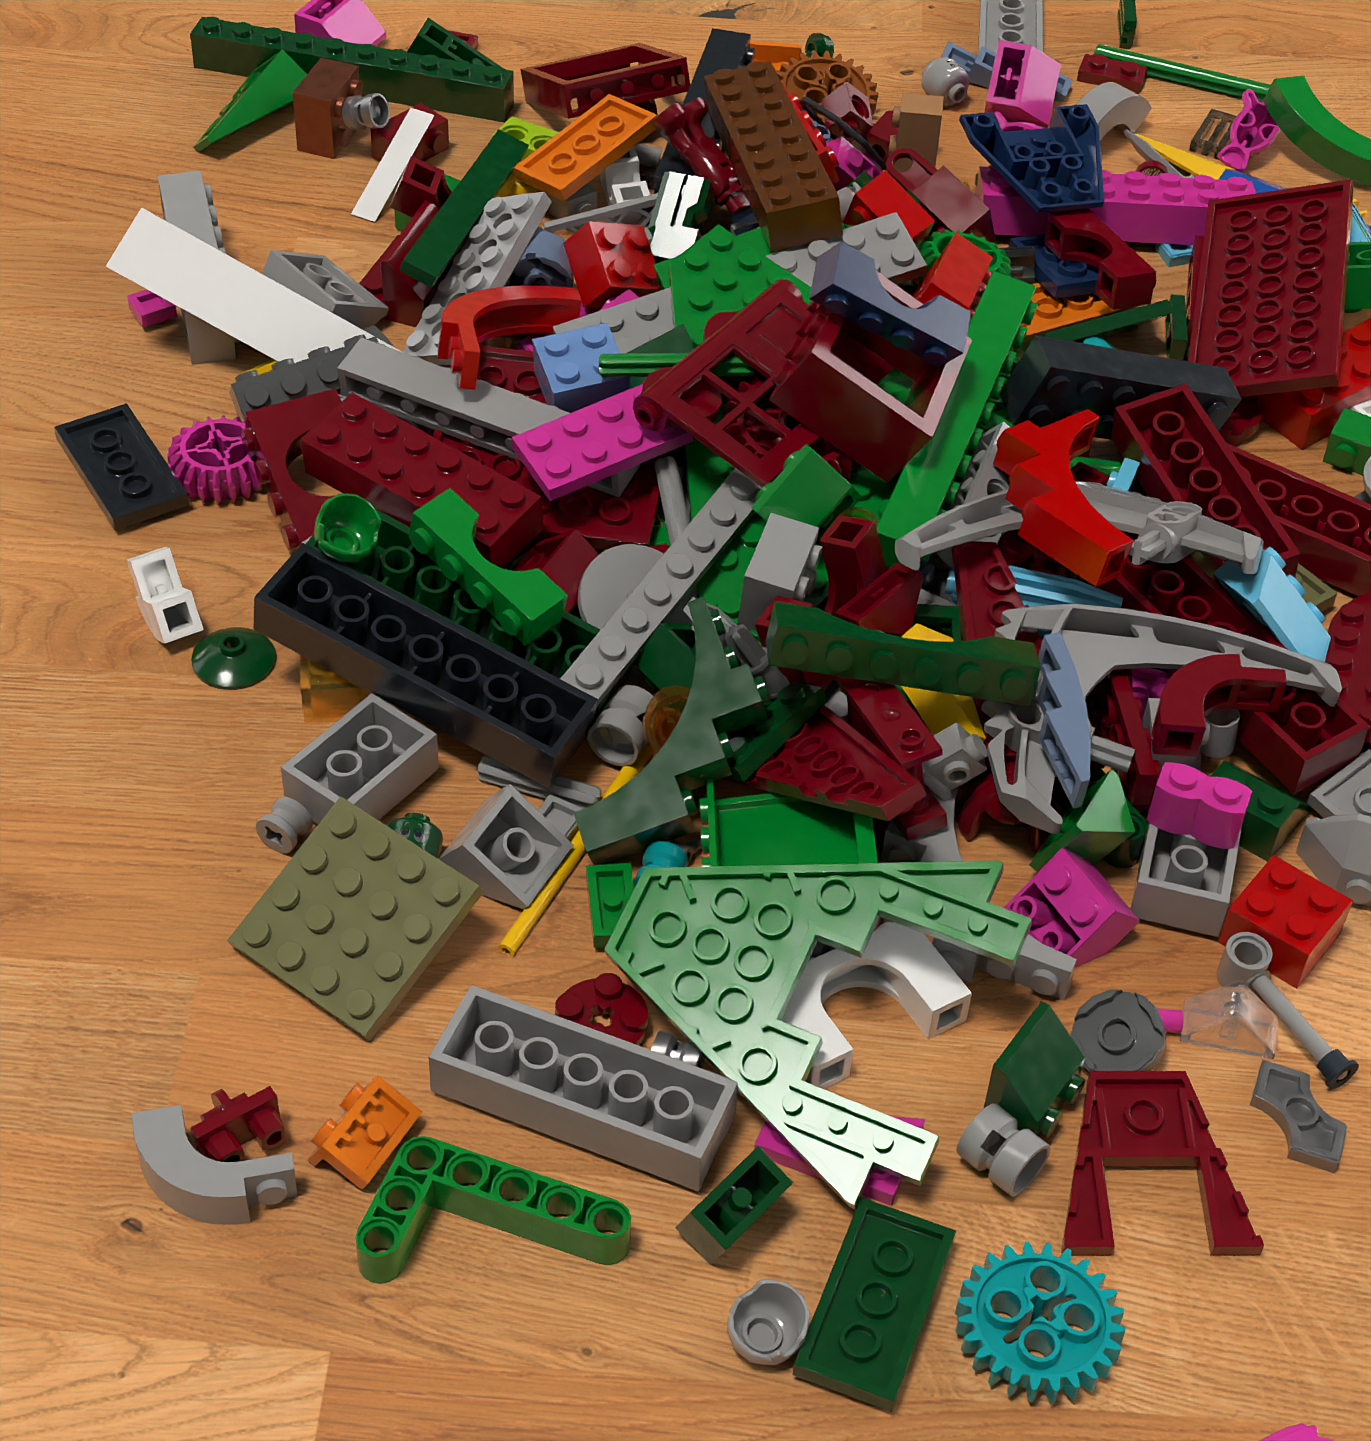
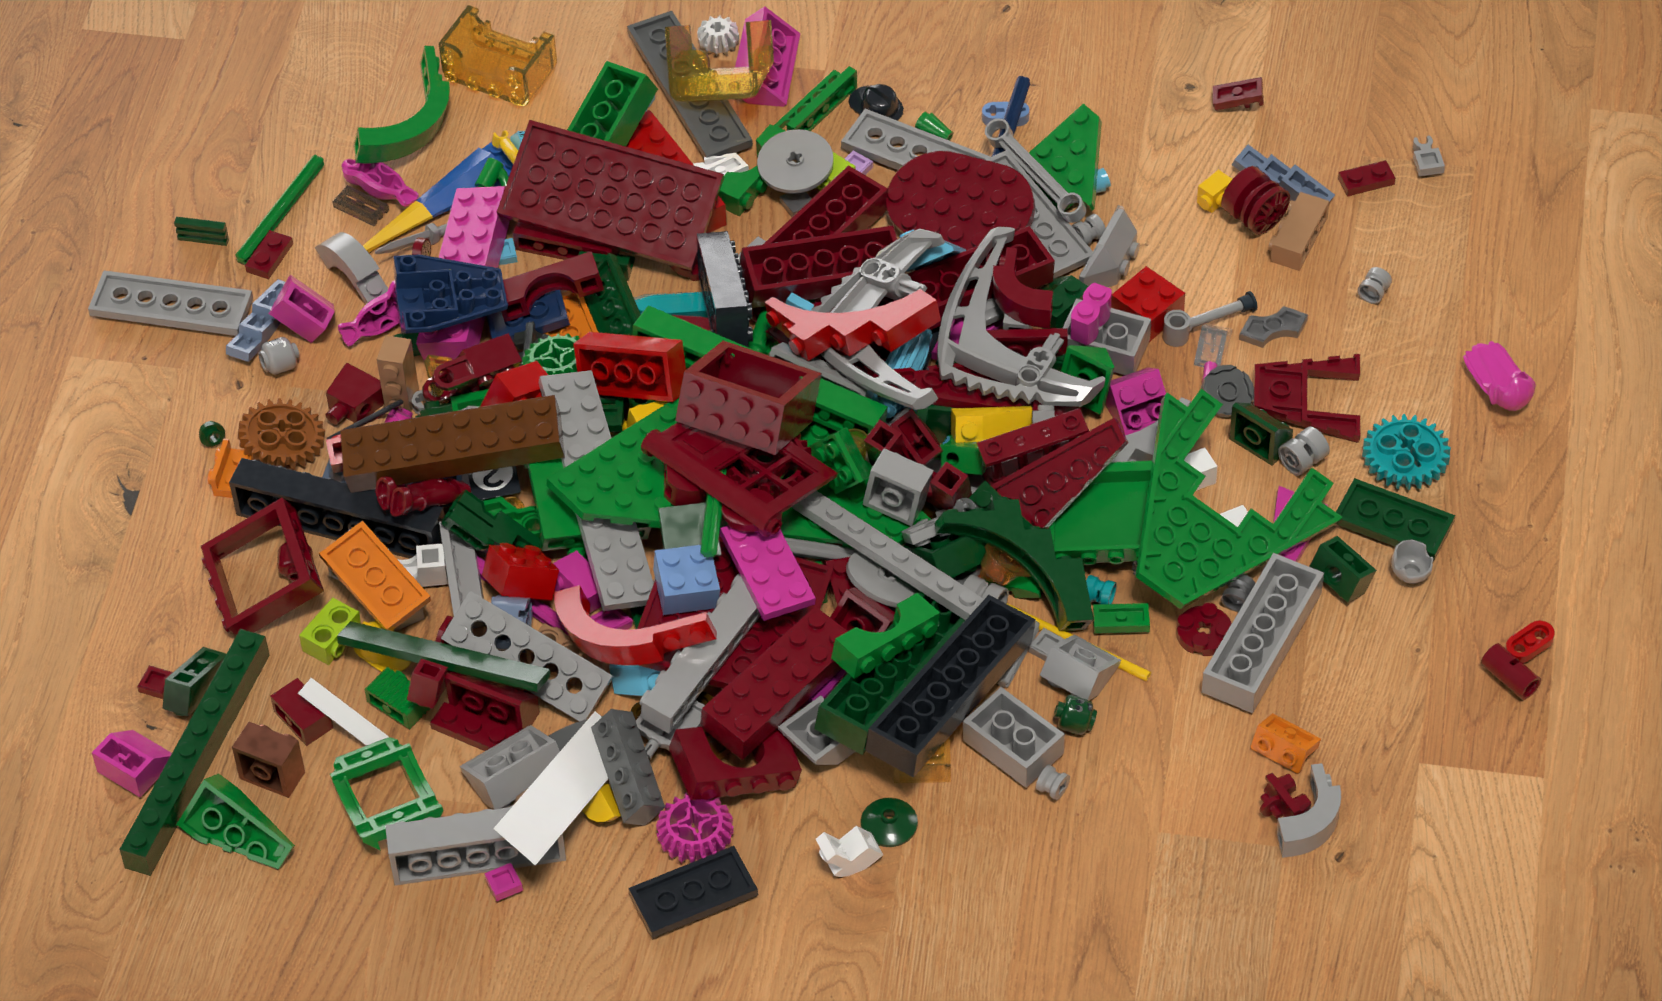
camera: 80 degrees left, 5 degrees up
(243, 195) = (378, 756): none -> green wedge
(347, 528) = (865, 700): green hair -> none
(355, 917) = (1138, 737): olive plate -> none
(365, 112) = (296, 724): flat silver wheel -> none
(485, 1204) = (1318, 706): green beam -> none
(849, 286) = (738, 361): dark blue arch -> none
(851, 107) = (333, 415): dark red brick -> none
(977, 668) = (997, 454): dark green arch -> none
(1065, 722) = (1055, 352): sand blue slope -> none

